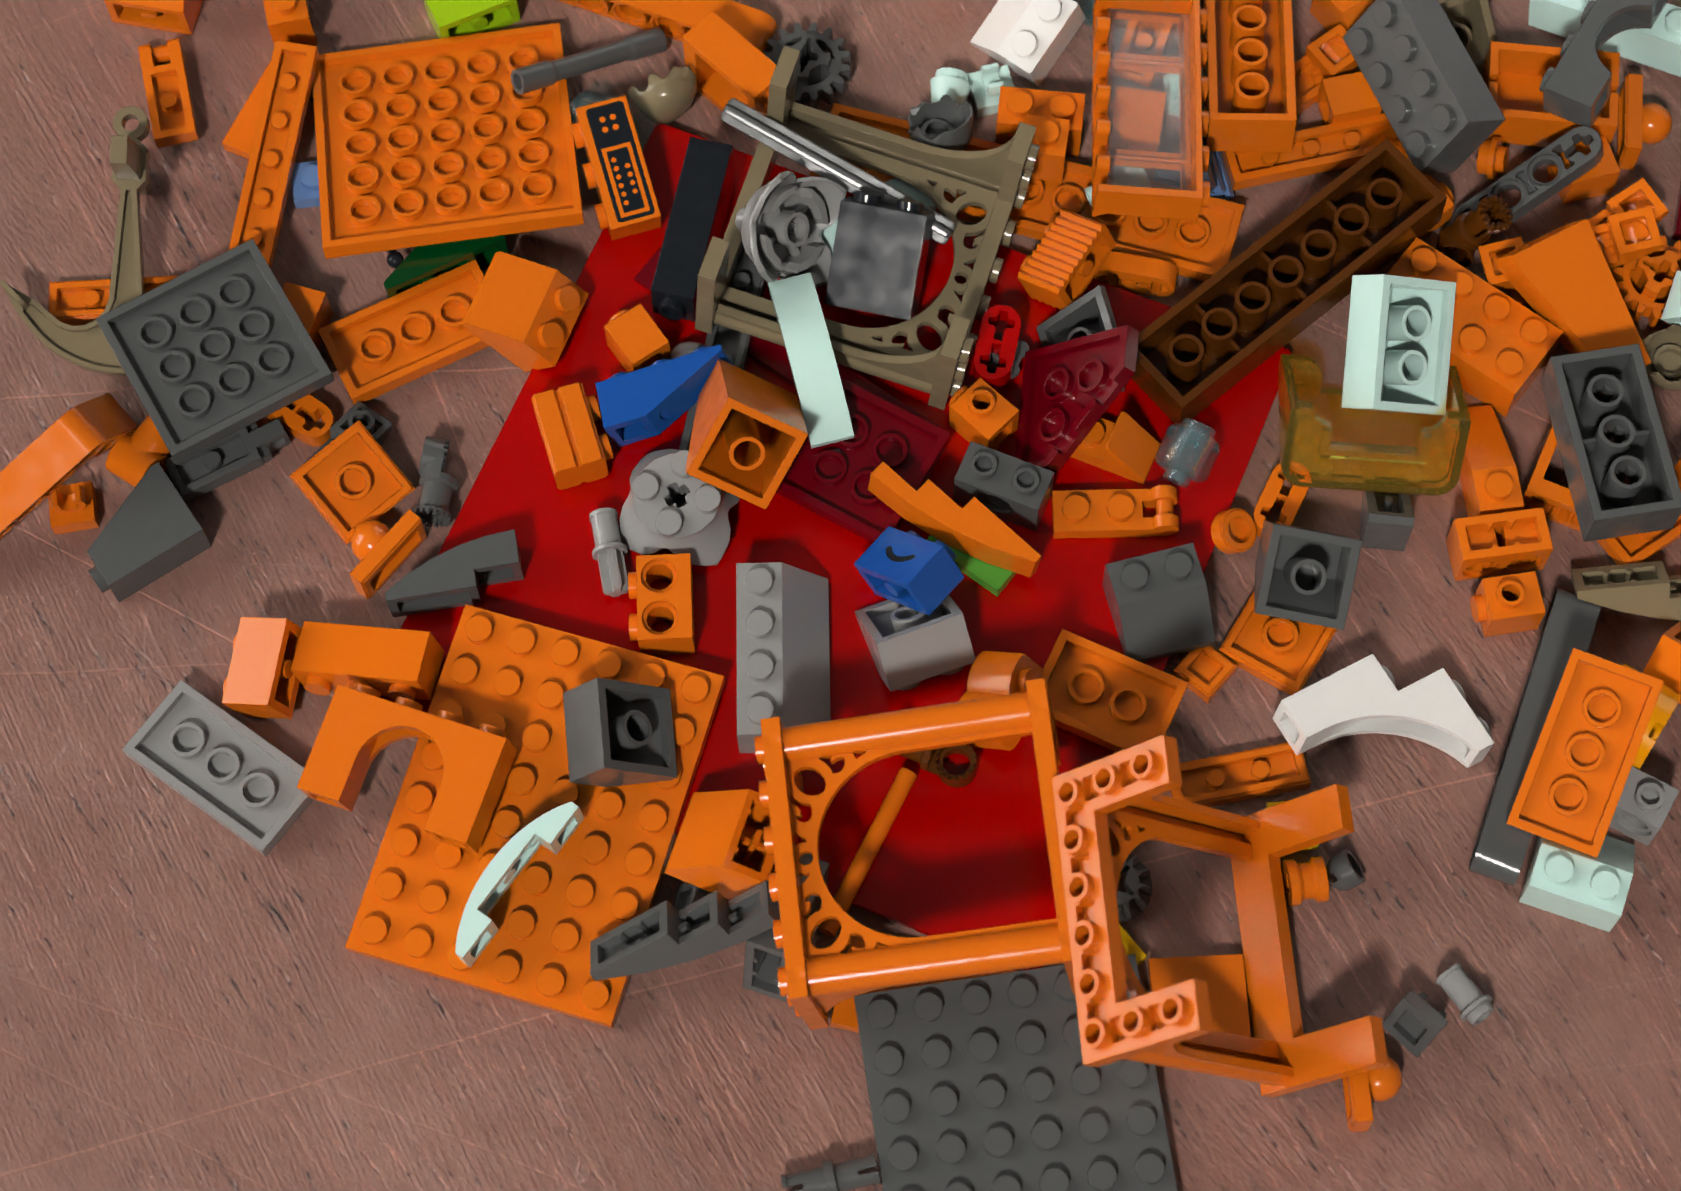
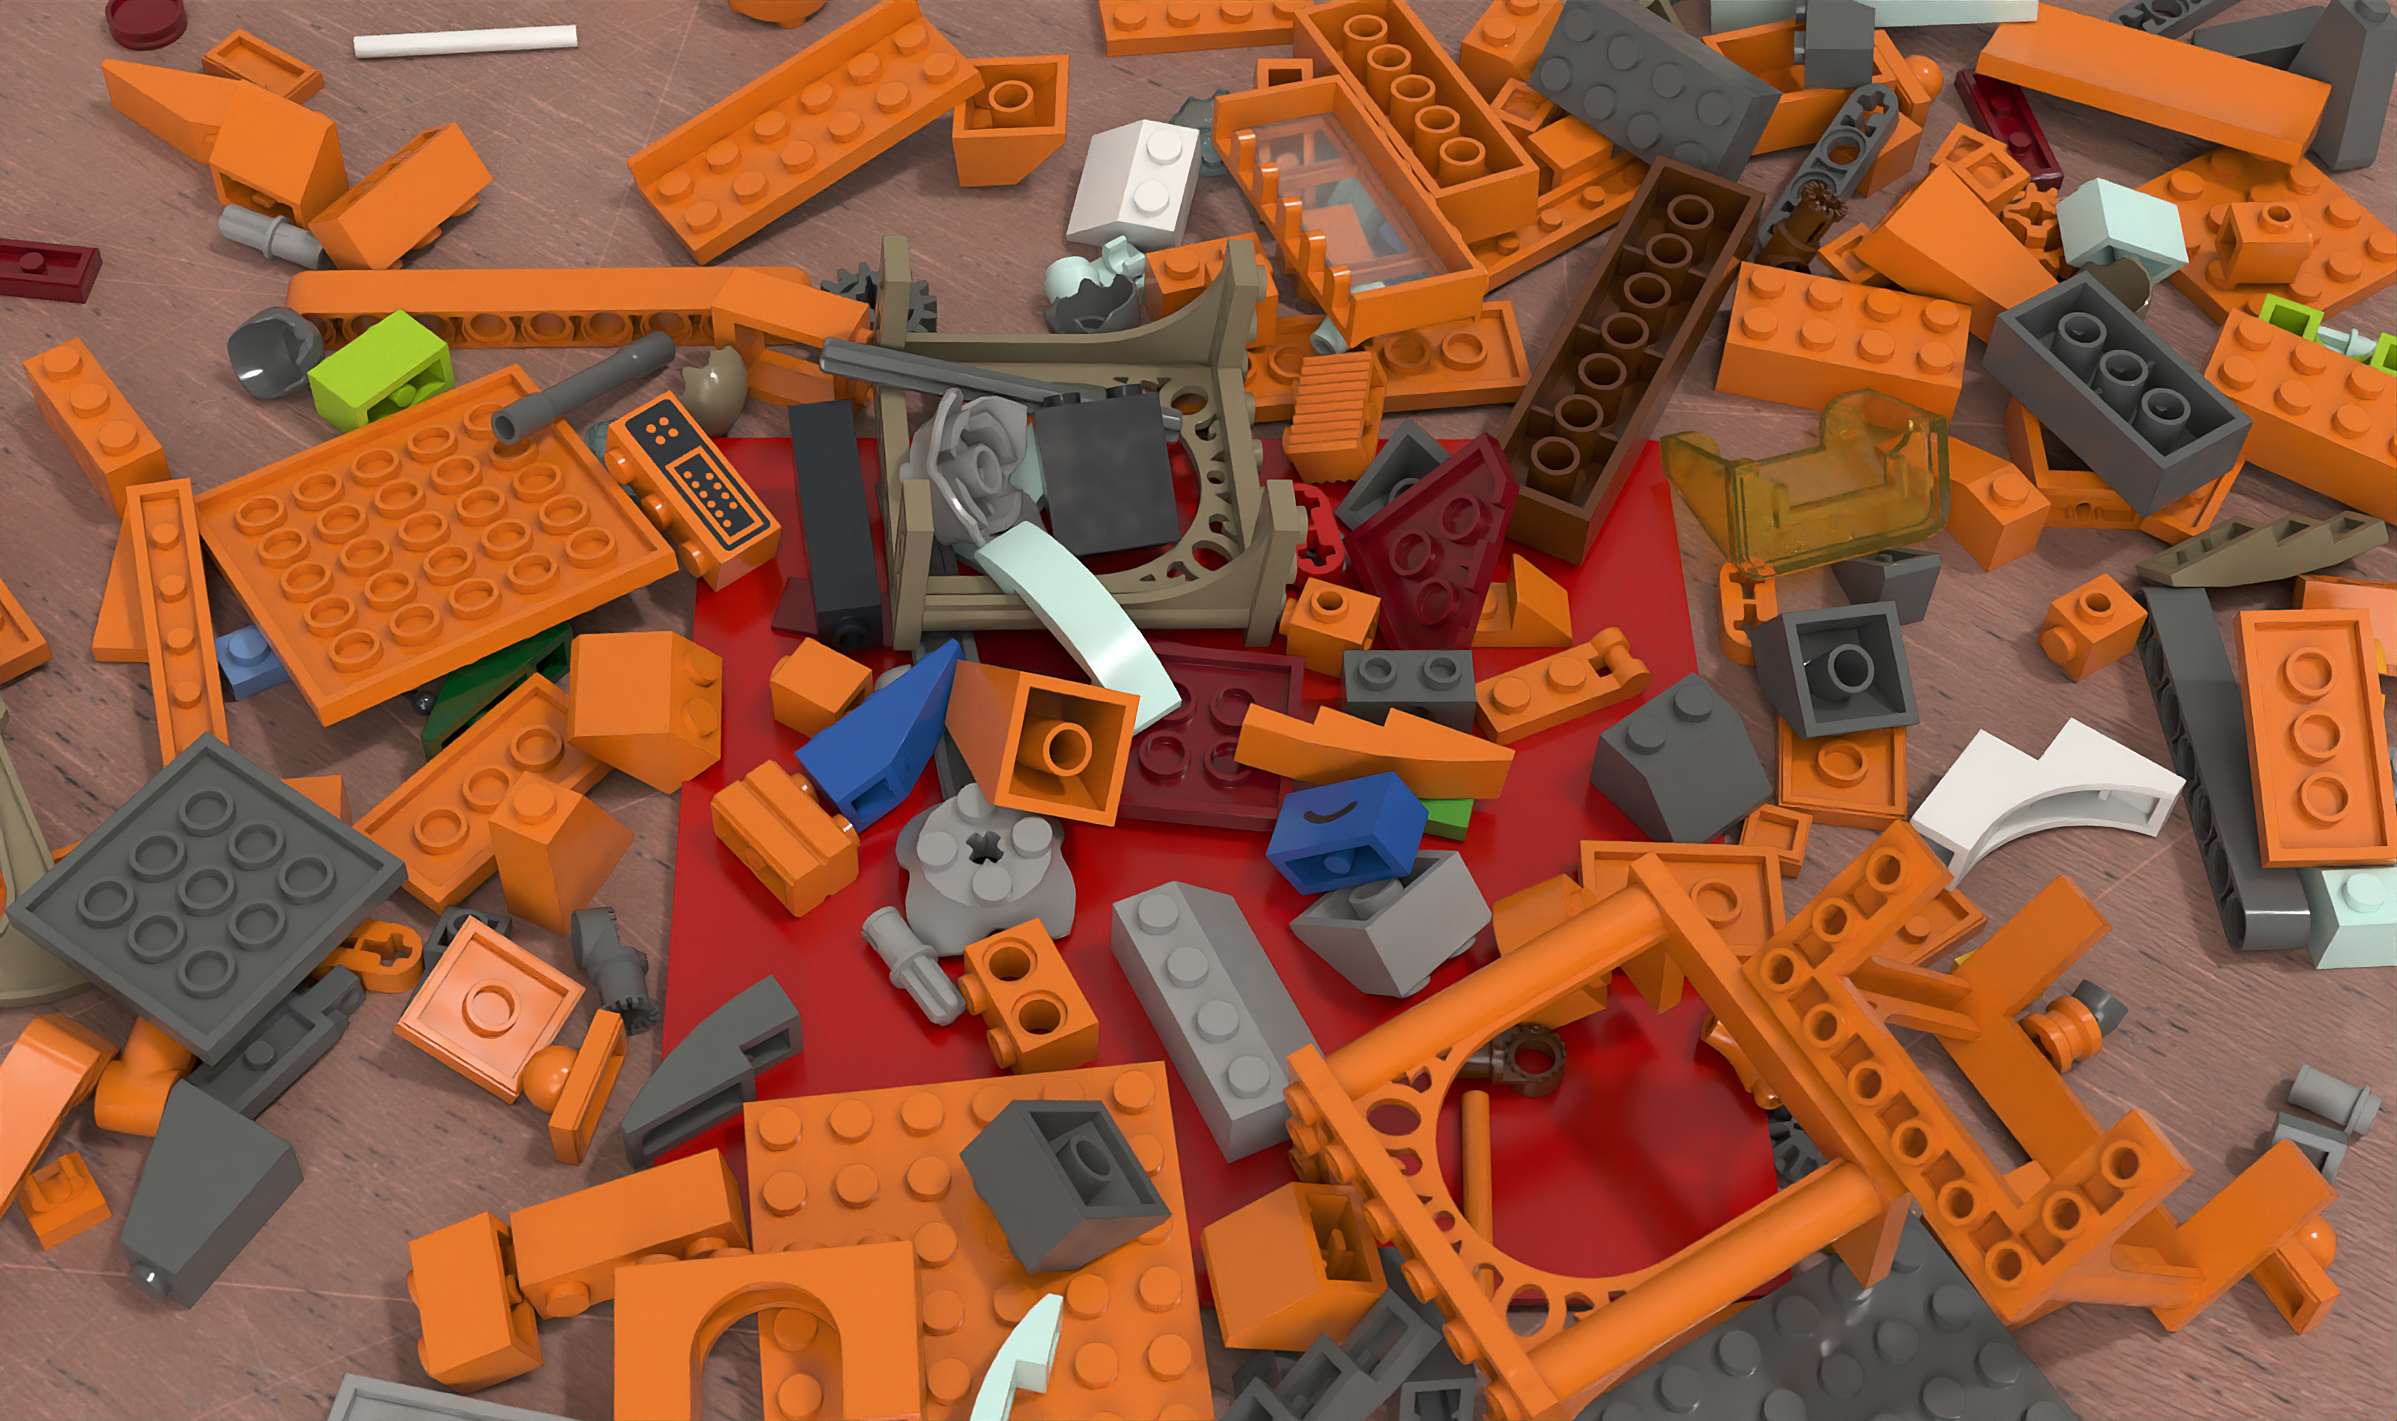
camera: 30 degrees left, 15 degrees down
(431, 390) = (553, 850): none -> orange slope
(1139, 274) = (1441, 410): orange beam -> none
(1187, 452) = (1612, 582): clear light blue head -> none
(1233, 531) = (1714, 660): orange tile -> none
(1398, 344) = (1796, 375): light aqua slope -> none
(1492, 158) = (1765, 168): orange plate -> none
(1499, 544) = (2041, 560): orange brick -> none

